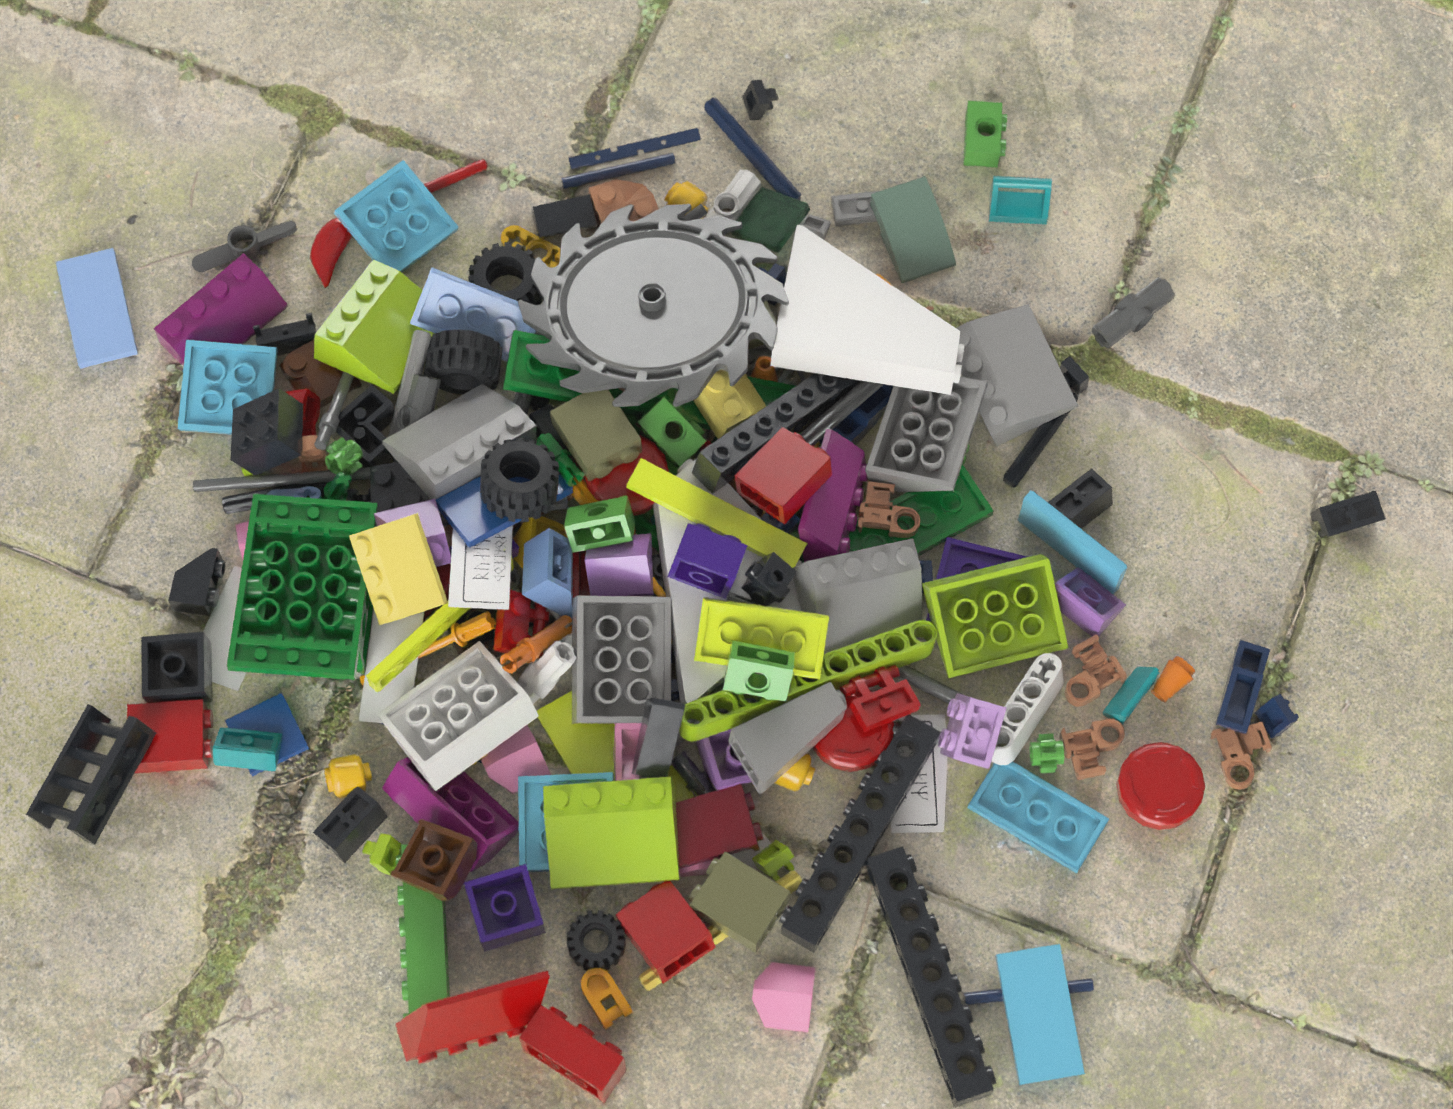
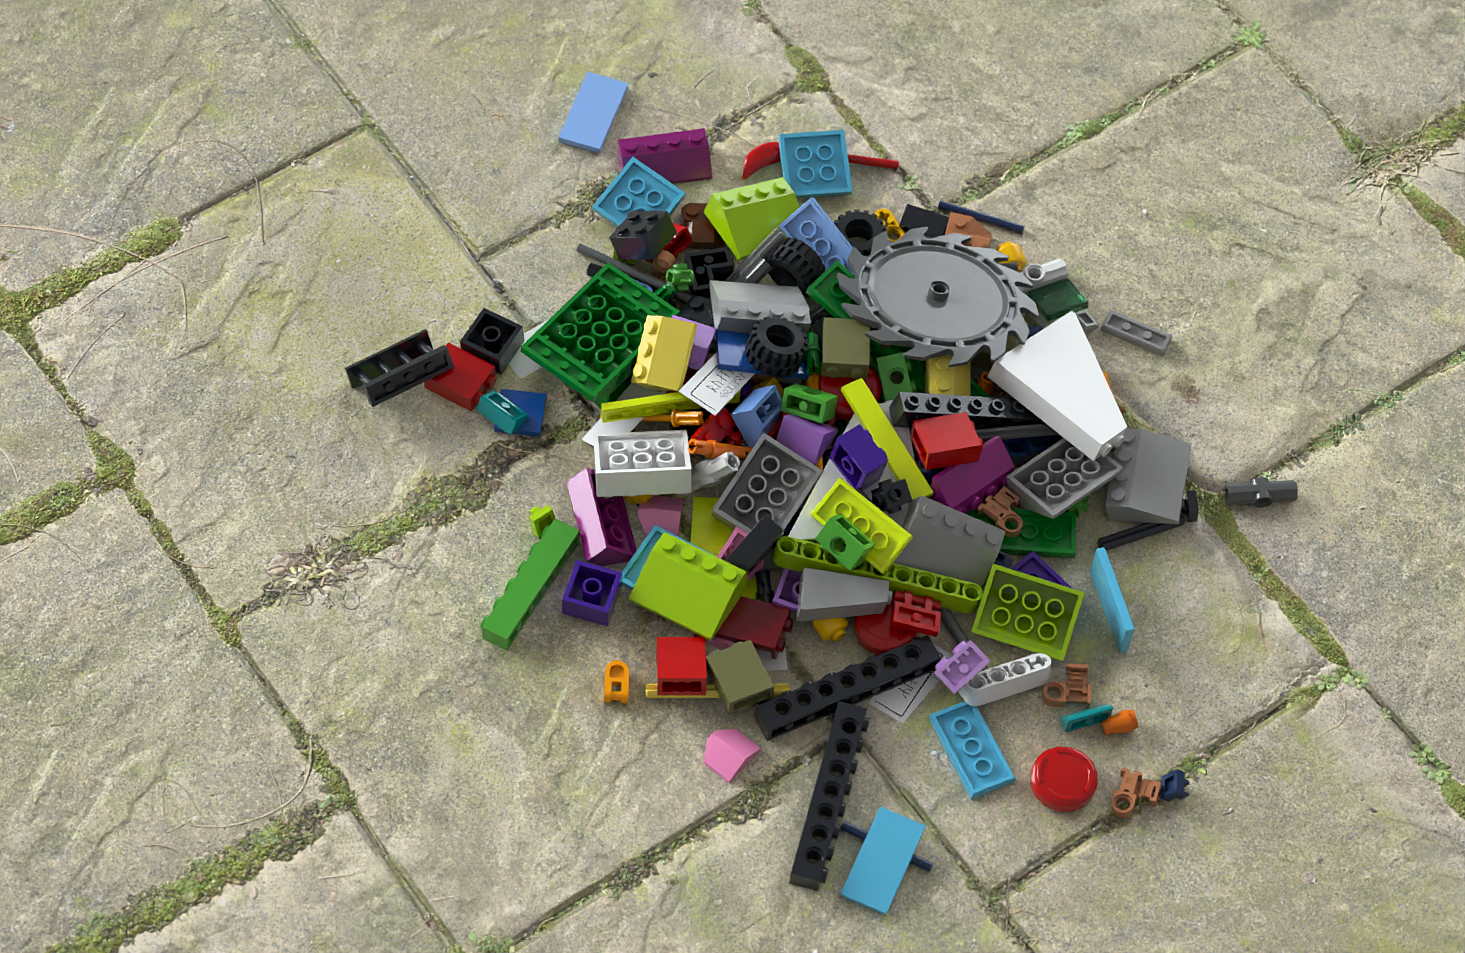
camera: 30 degrees right, 10 degrees down
(195, 584) = (539, 302): black slope -> none
(229, 252) = (686, 123): dark grey piece -> none
(287, 336) = (694, 192): black hinge -> none
(330, 420) = (686, 251): dark grey bar -> none
(346, 774) = (551, 462): yellow head -> none
(350, 824) = (533, 490): black hinge -> none
(436, 860) = (569, 537): reddish brown slope -> none
(471, 1018) = (526, 632): red slope -> none
(573, 1052) = (573, 697): red brick -> none
(590, 922) = (639, 636): black tyre -> none
(631, 149) = (997, 209): dark blue piece -> none
(750, 149) = (1077, 251): dark blue axle -> none
(758, 99) = (1104, 225): black tile -> none
(773, 858) = (780, 668): lime tile -> none
(913, 229) = (1148, 358): sand green slope -> none
(981, 149) = (1245, 318): bright green brick -> none
(1019, 206) = (1231, 385): teal tile -> none
(1046, 753) = (1002, 714): bright green gear -> none
(1084, 499) = (1140, 582): black hinge -> none
(1084, 748) = (1032, 726): nougat piece -> none
(1087, 602) = (1097, 643): medium lavender slope -> none
(1242, 686) = (1163, 753): dark blue slope -> none
(1348, 514) = (1315, 694): black hinge -> none

